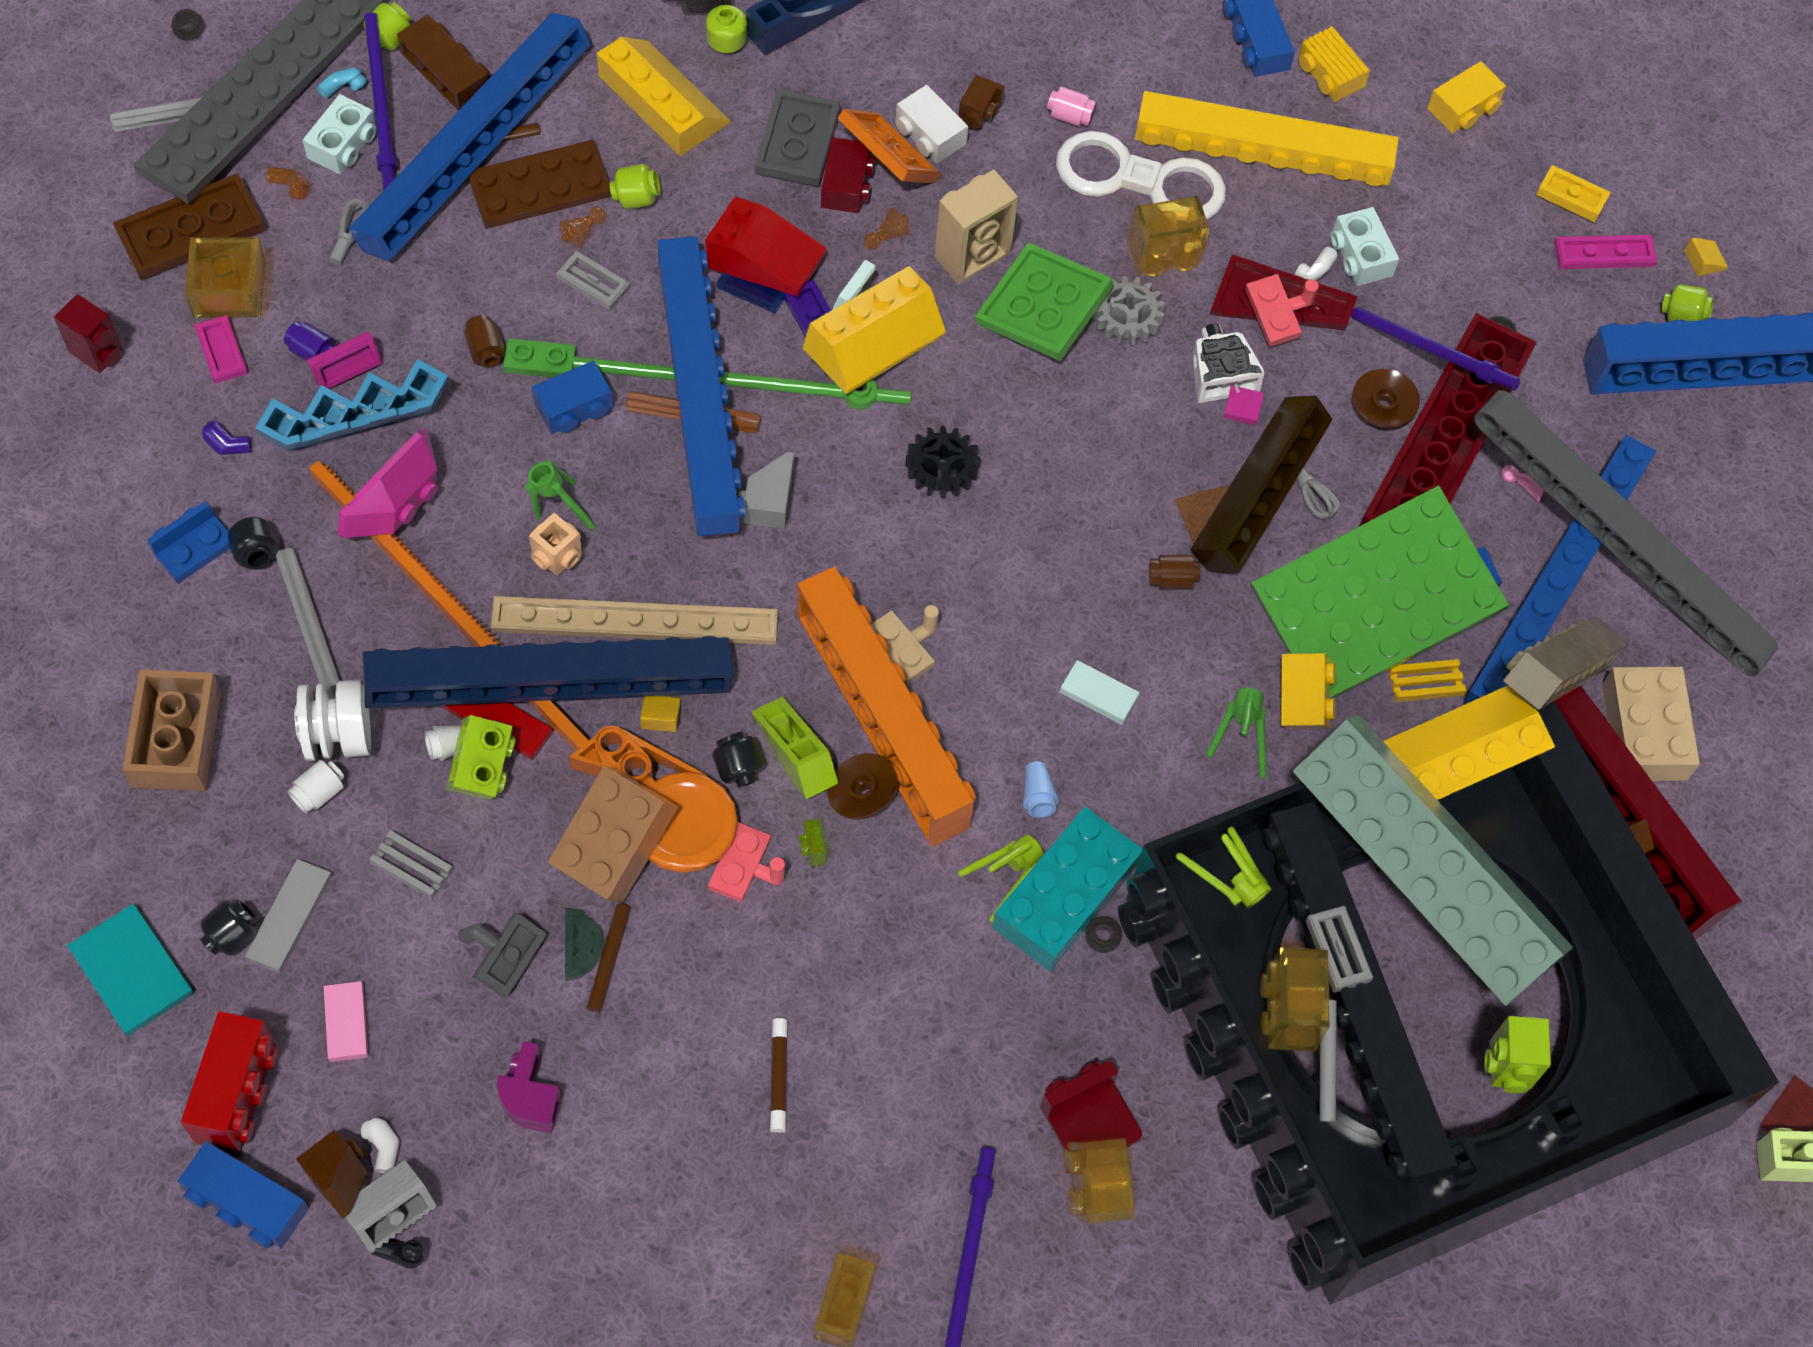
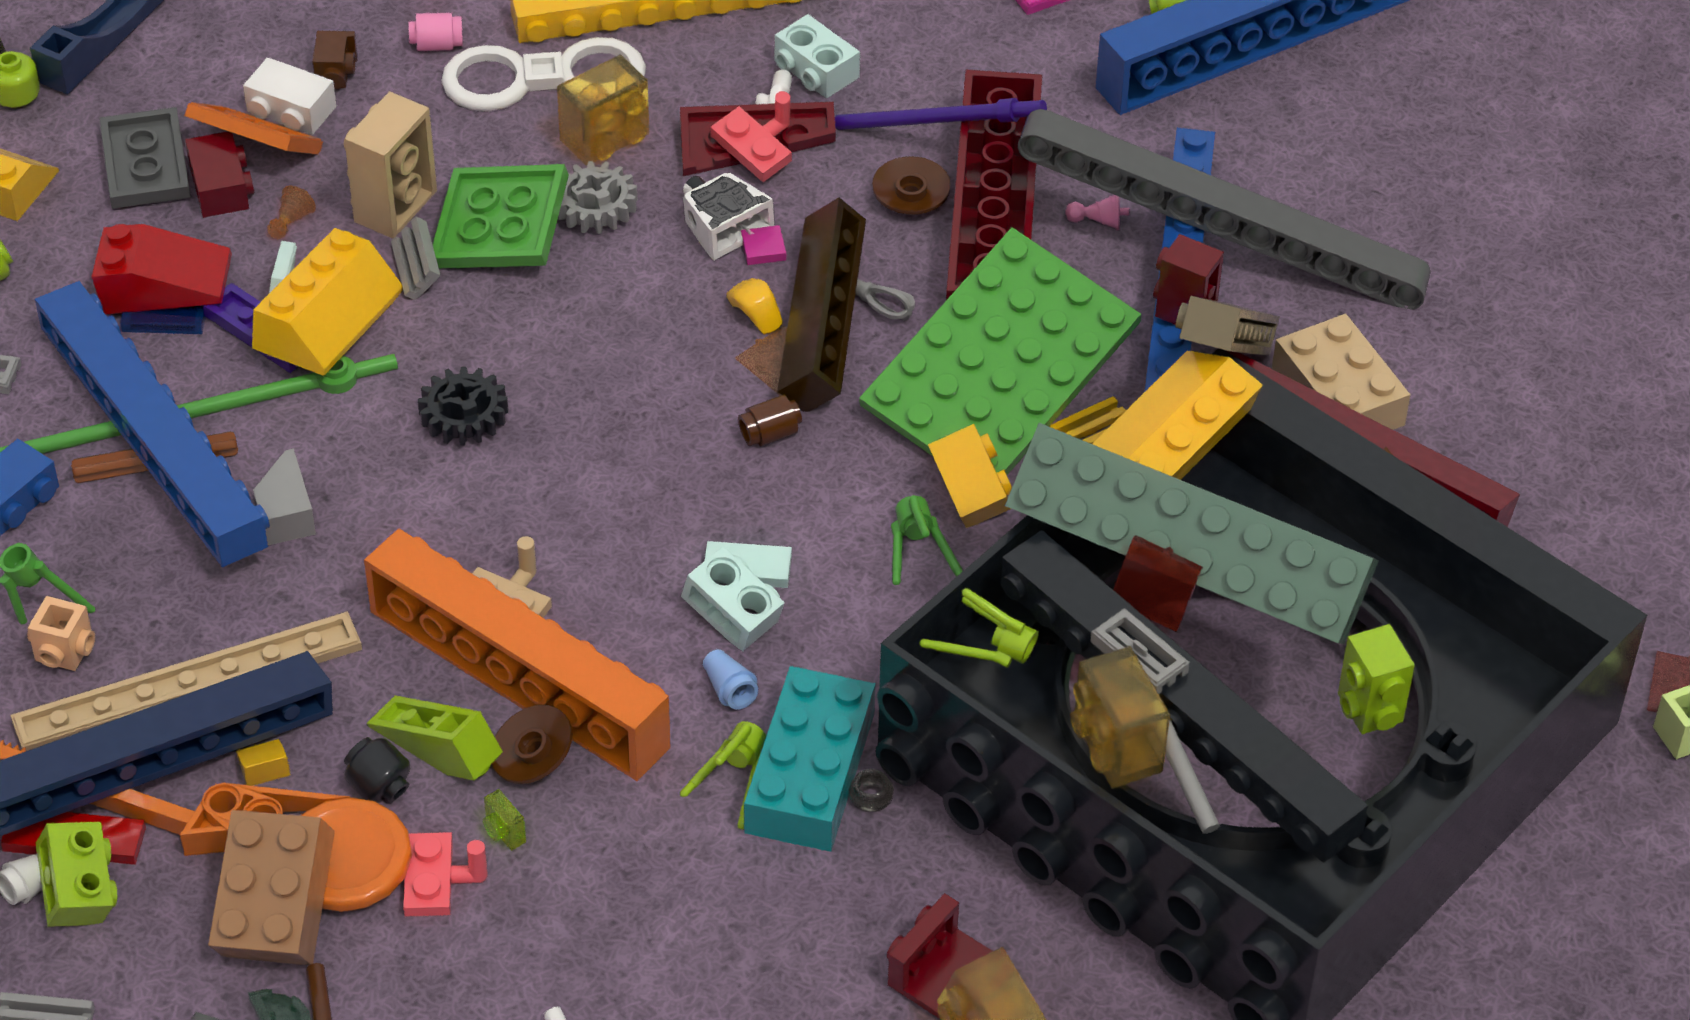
camera: 20 degrees left, 15 degrees down
(964, 312) = (411, 263): none -> light grey tile
(1062, 725) = (726, 604): none -> light aqua brick
(1212, 459) = (758, 303): none -> yellow hair
(1383, 888) = (1157, 582): none -> clear red piece
(1557, 597) = (1186, 271): none -> dark red brick

